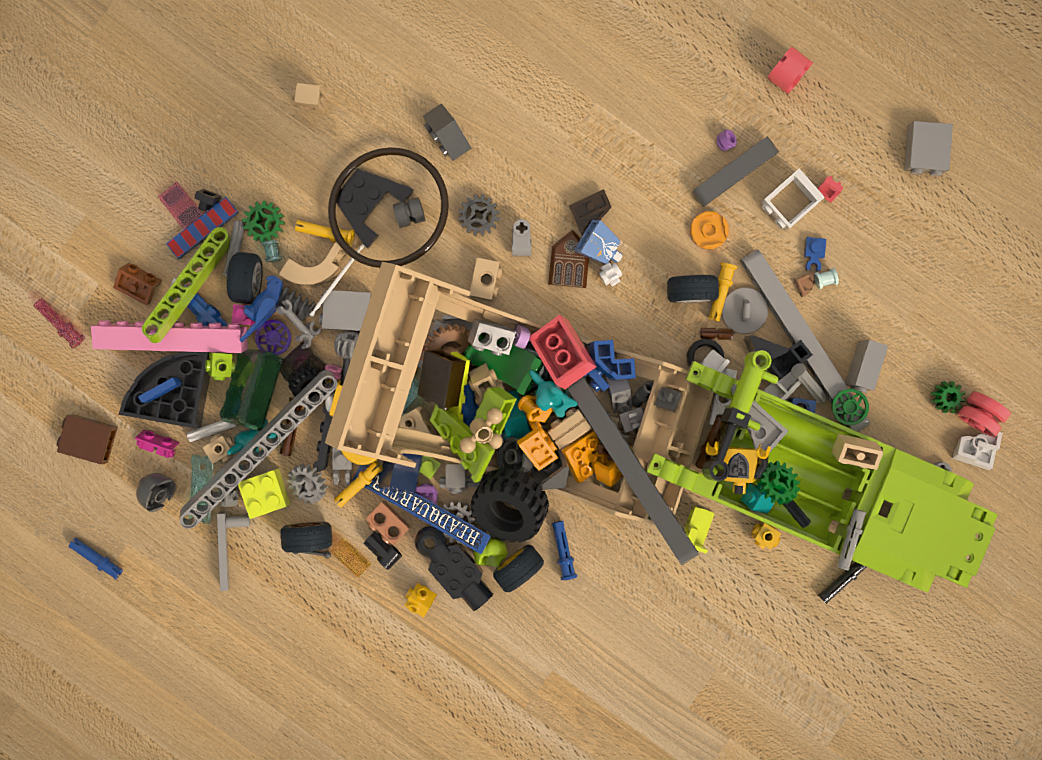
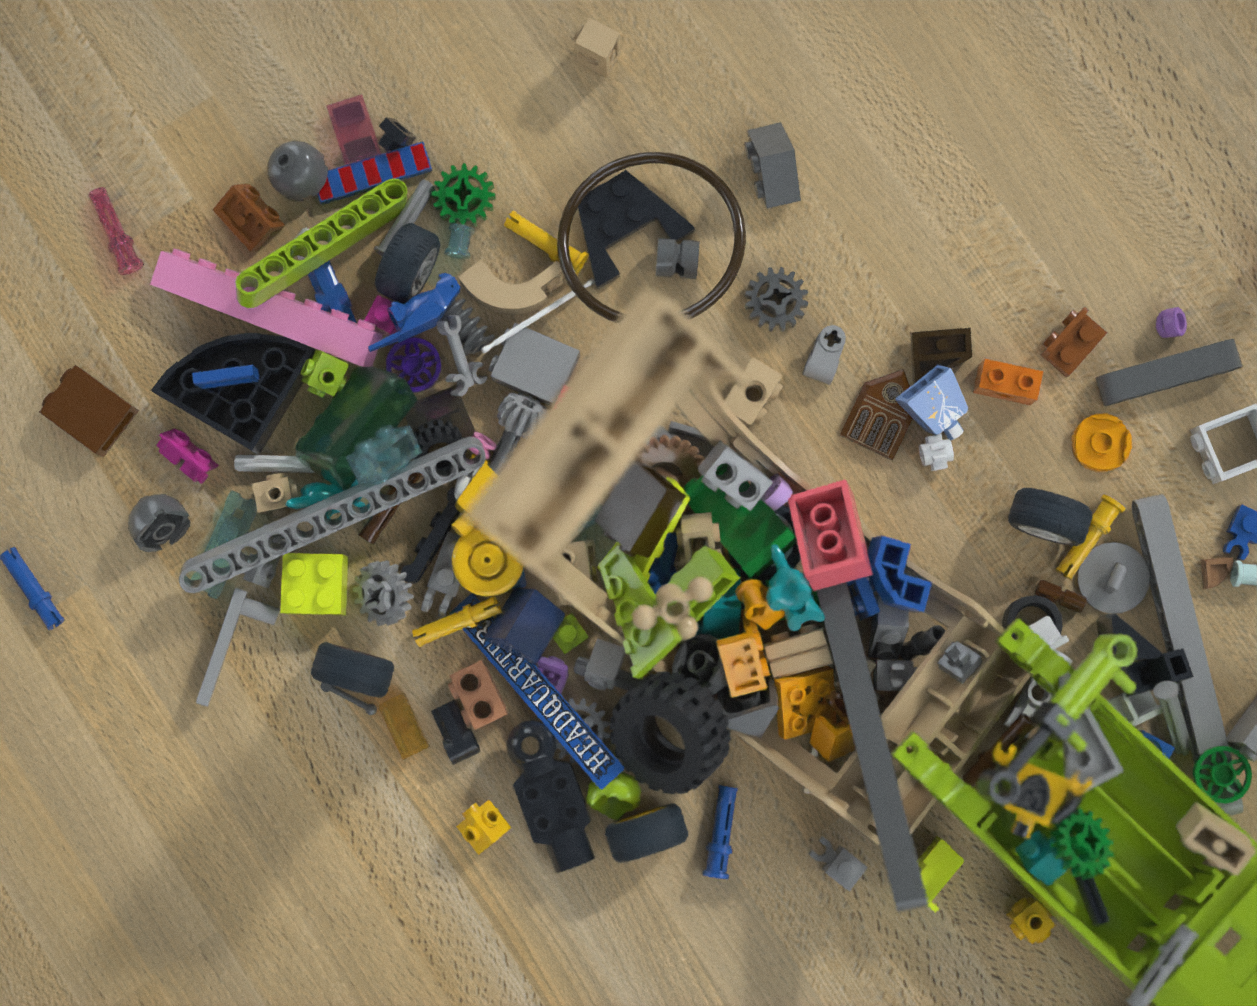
camera: 20 degrees right, 5 degrees down
(155, 244) = (297, 170): none -> dark grey cylinder
(274, 402) = (384, 454): none -> clear light blue brick
(638, 214) = (1008, 382): none -> orange brick
(641, 544) = (840, 865): none -> light grey brick
(670, 174) = (1073, 343): none -> dark orange bracket

